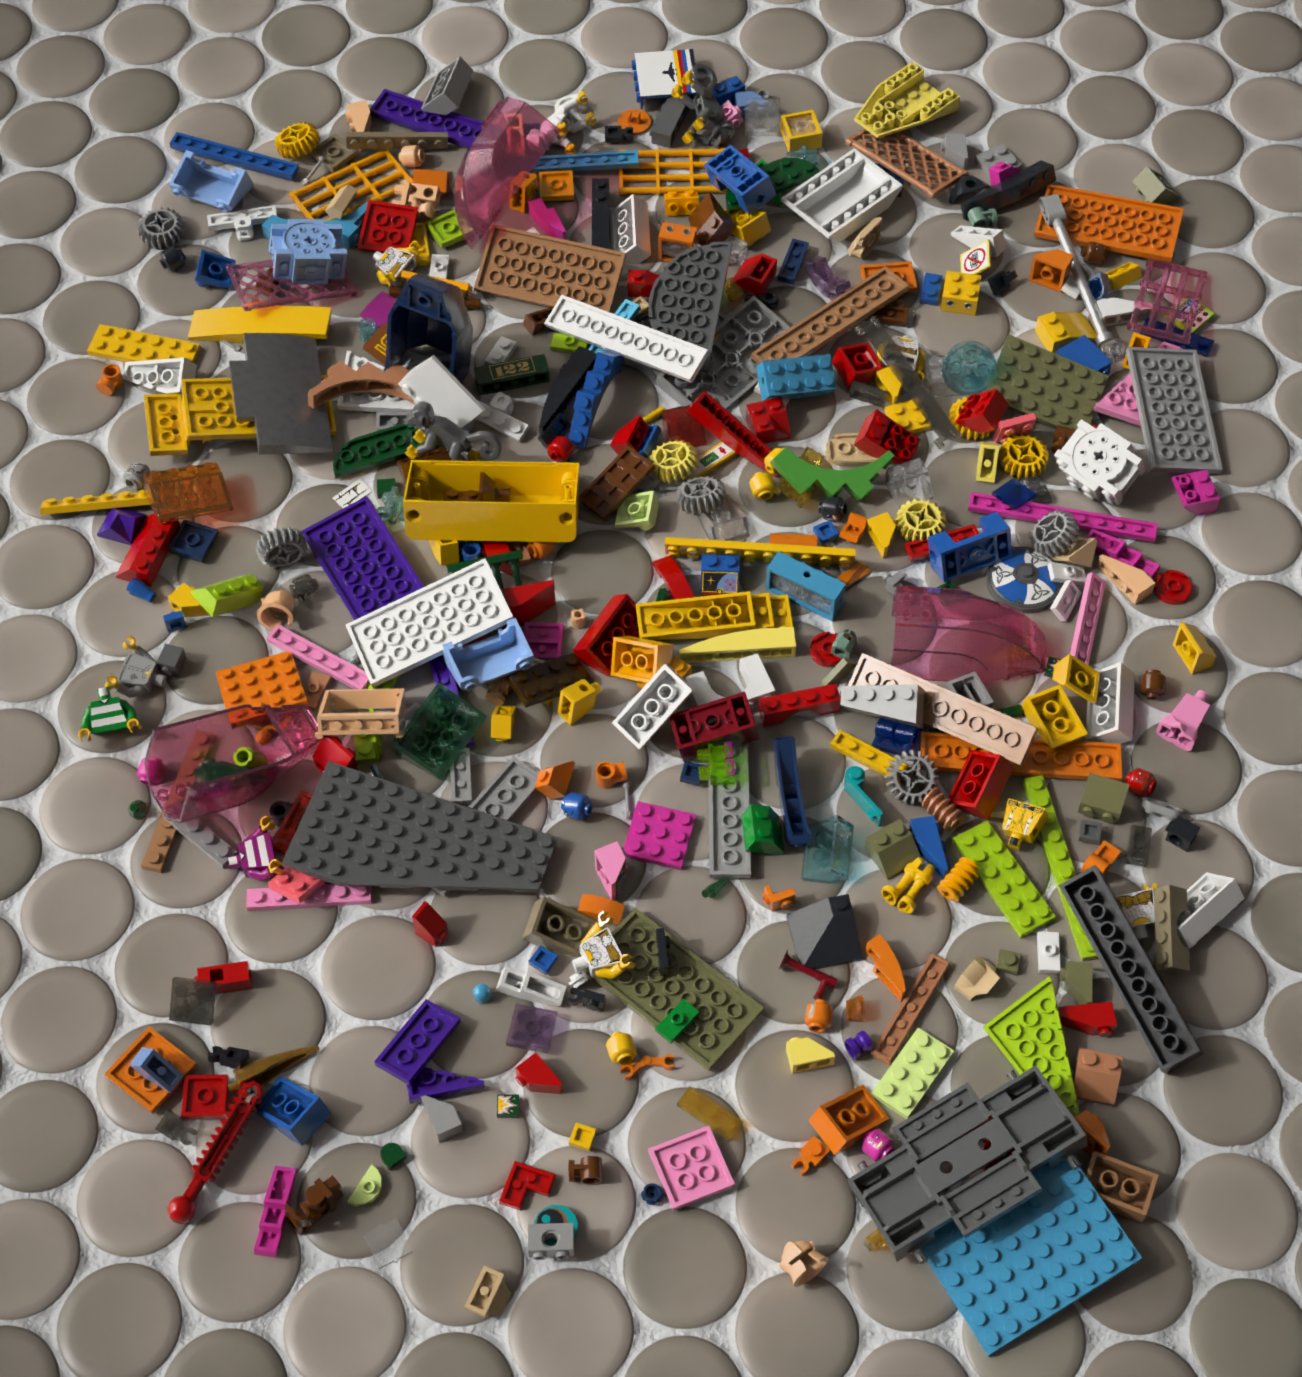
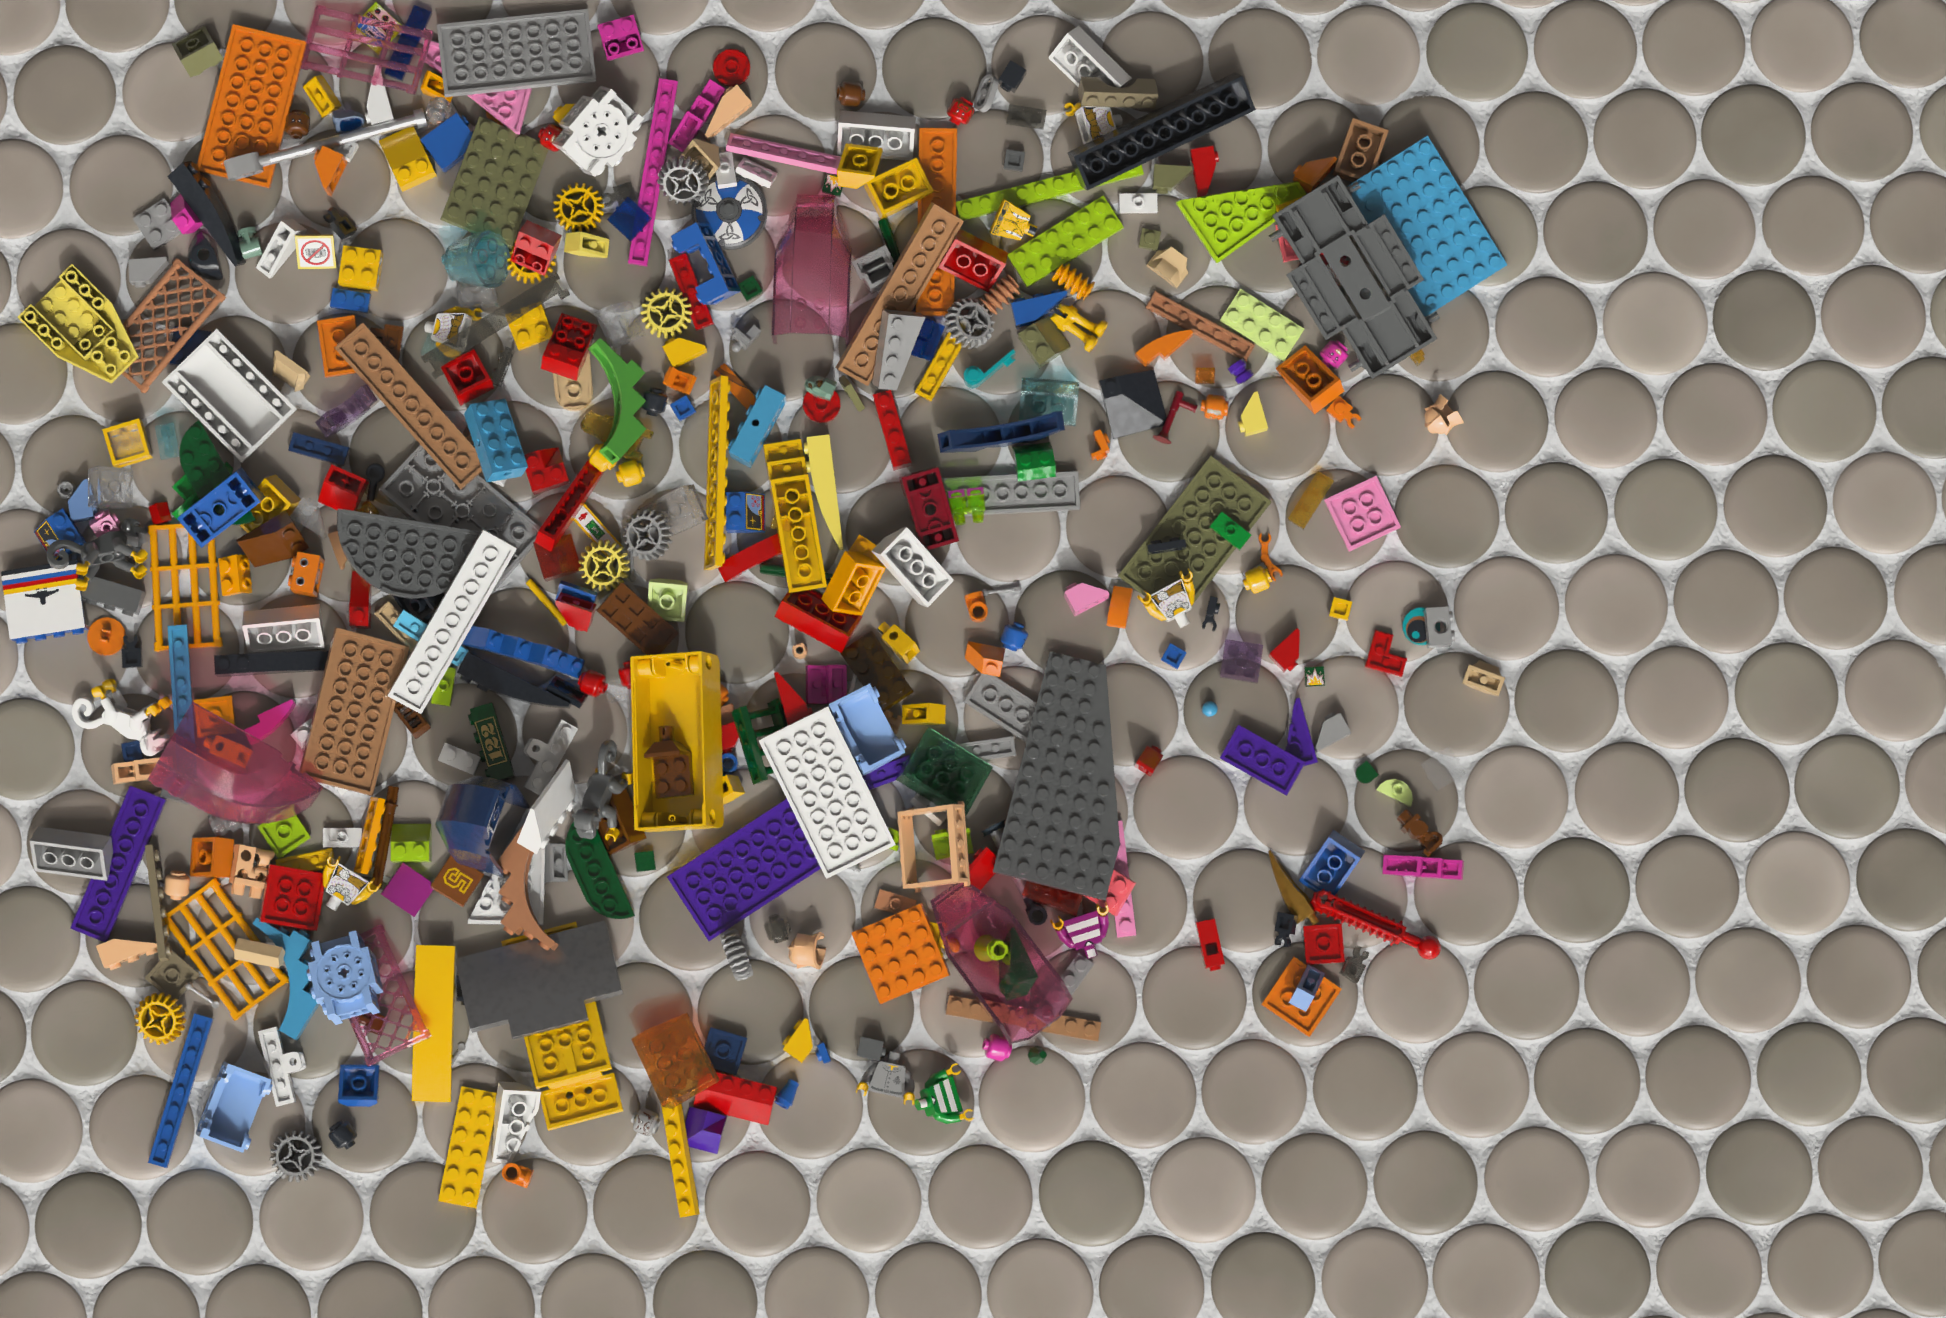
camera: 95 degrees left, 25 degrees up
(192, 1001) = (1236, 967): clear smoke plate -> none
(229, 594) = (792, 1003): lime slope -> none
(318, 658) = (859, 903): bright pink plate -> none
(352, 493) = (652, 896): white sticker -> none
(366, 329) = (435, 902): clear light blue wheel -> none
(393, 505) = (671, 847): clear light blue hips -> none
(530, 987) = (1201, 665): white slope -> none
(557, 927) = (1142, 643): dark tan slope -> none
(577, 979) = (1194, 623): white plate -> none
(588, 1170) = (1371, 601): reddish brown piece -> none
(652, 1188) = (1387, 541): dark blue plate -> none
(659, 835) = (1037, 558): dark pink plate -> none
(690, 773) = (971, 531): dark blue plate -> none
(713, 889) = (1091, 505): clear green bar -> none
(754, 675) = (876, 470): white arch -> none
(793, 539) = (699, 440): orange piece -> none
(888, 382) = (492, 345): yellow slope -> none
(1012, 426) = (547, 208): coral plate -> none
(1061, 437) = (552, 167): reddish brown piece -> none
(1097, 1076) = (1258, 165): nougat slope -> none
(1103, 798) = (984, 147): olive slope -> none
(1103, 857) = (1045, 152): orange plate -> none
(1184, 721) = (889, 65): bright pink piece -> none
(1193, 648) = (809, 51): yellow slope -> none

